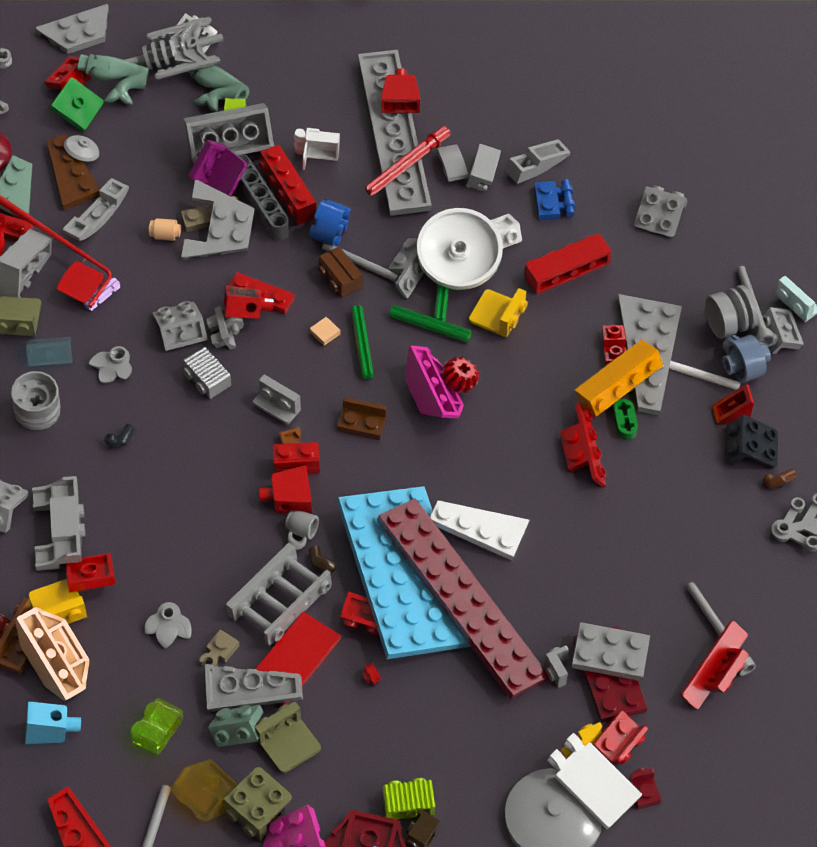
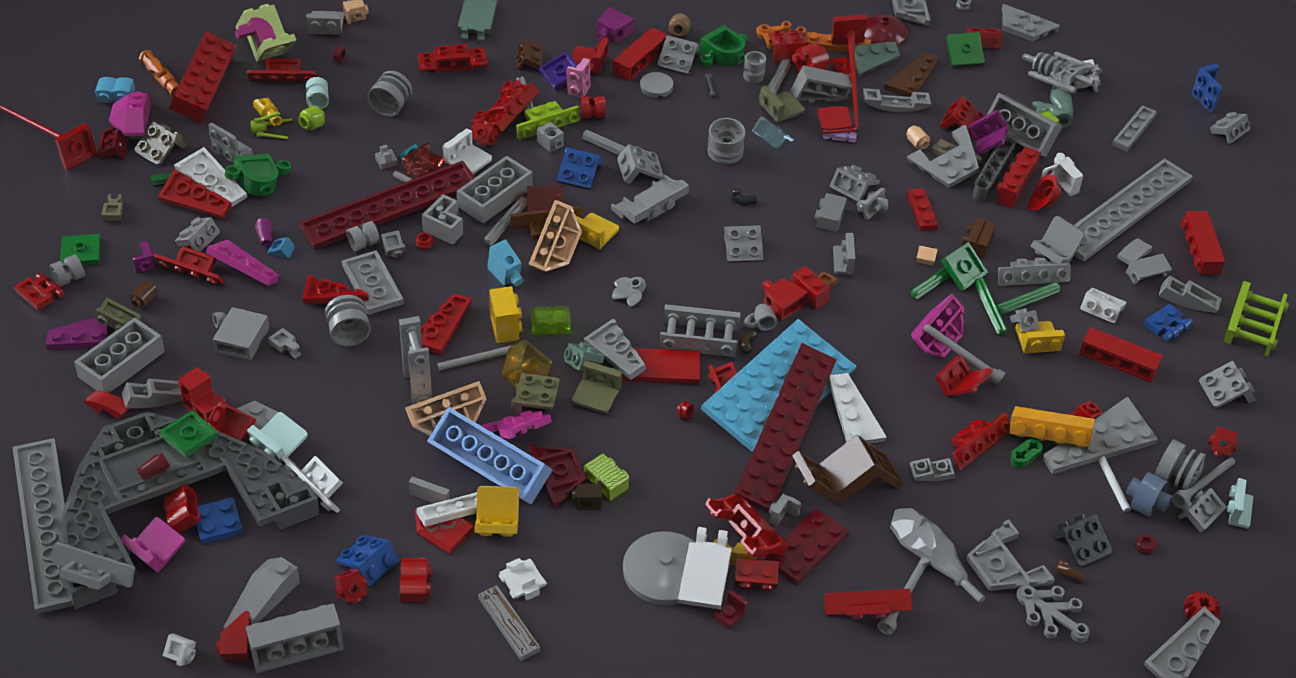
camera: 55 degrees right, 10 degrees down
(81, 148) = (936, 70): light grey piece -> none
(90, 573) = (629, 231): red tile -> none
(111, 367) = (793, 166): light grey plate -> none
(114, 68) = (1007, 46): sand green piece -> none
(124, 766) = (505, 314): none -> yellow brick
(164, 172) = (962, 113): none -> red bracket
(187, 478) = (743, 243): none -> light grey hinge
(219, 648) = (635, 324): dark tan plate -> none
(237, 300) = (900, 199): red torso -> none
(294, 47) = (1134, 128): none -> light grey tile
(327, 179) = (1045, 193): none -> red piece
(330, 222) = (1009, 209): blue brick -> none
(362, 418) = (877, 308): reddish brown bracket -> none
(366, 264) = (1001, 246): light grey bar -> none
(370, 310) = (964, 266): none -> plate
(400, 93) = (1154, 191): red torso -> none
(400, 212) = (1059, 241): none -> light grey bracket
(433, 140) = (1107, 224): axle -> none
(459, 248) = (1061, 284): white dish -> none
(460, 374) = (964, 337): red gear -> none
(472, 305) = (1027, 320): none -> light grey bracket
(486, 103) = (1203, 243): none -> red brick
(511, 409) = (959, 379): none -> red bracket
(520, 379) = (995, 377): none -> light grey piece
(559, 581) = (847, 470): none -> reddish brown bracket
(565, 707) = (757, 534): none -> red bracket
(591, 146) = (1238, 319): none -> lime fence
(592, 508) = (932, 471): none -> light grey slope
(611, 651) = (821, 532): light grey plate -> none
(678, 569) = (931, 545): none -> light grey piece
(723, 259) = (1229, 436): none -> red brick
(734, 405) = (1106, 510): red slope -> none
(736, 531) = (999, 568): none -> light grey wing
(786, 399) = (1145, 544): none -> dark red tile

